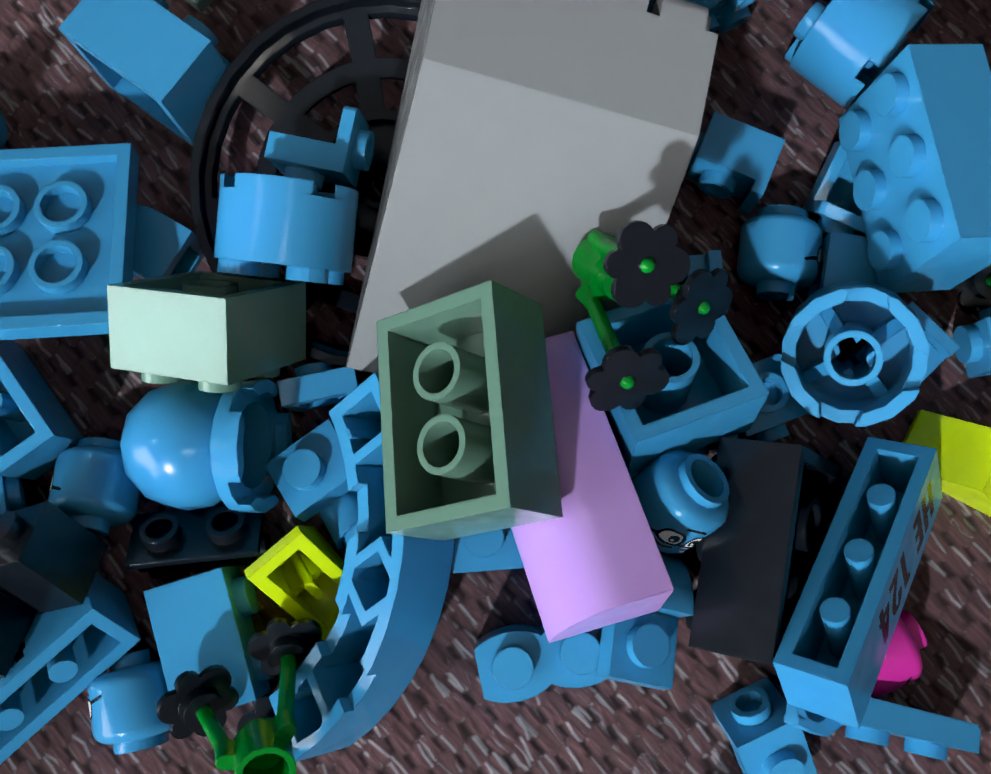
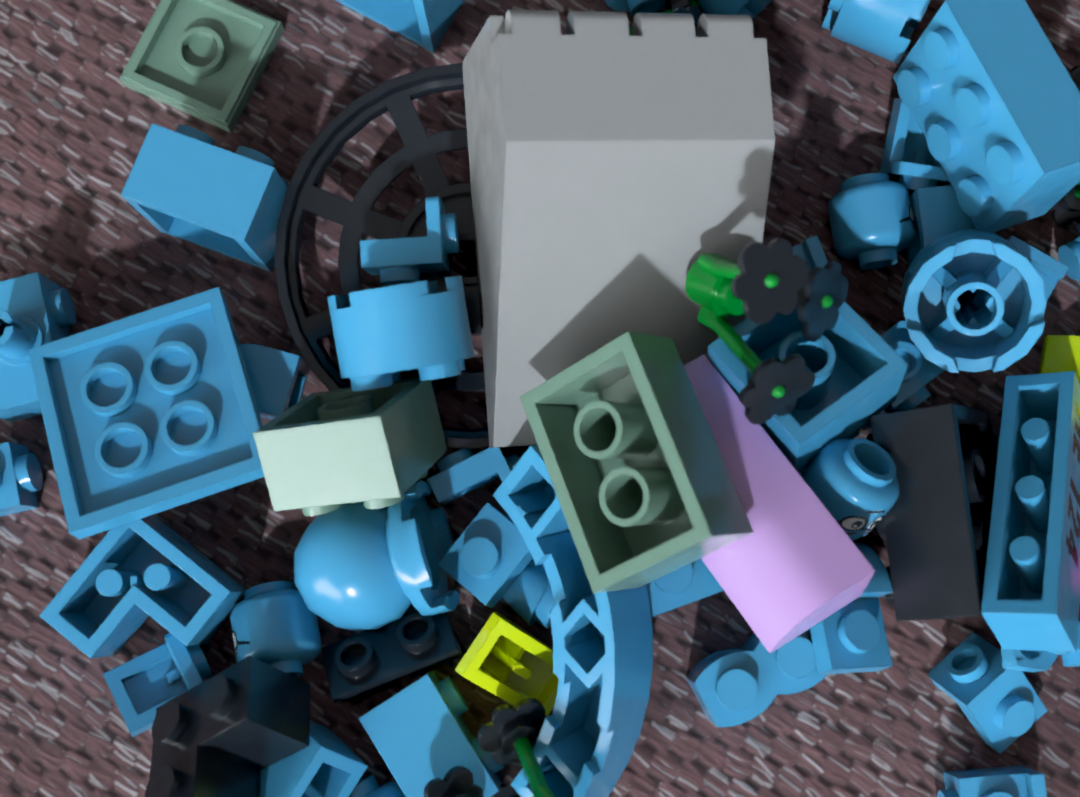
camera: 15 degrees left, 0 degrees up
(734, 160) = (808, 143): dark azure brick -> none

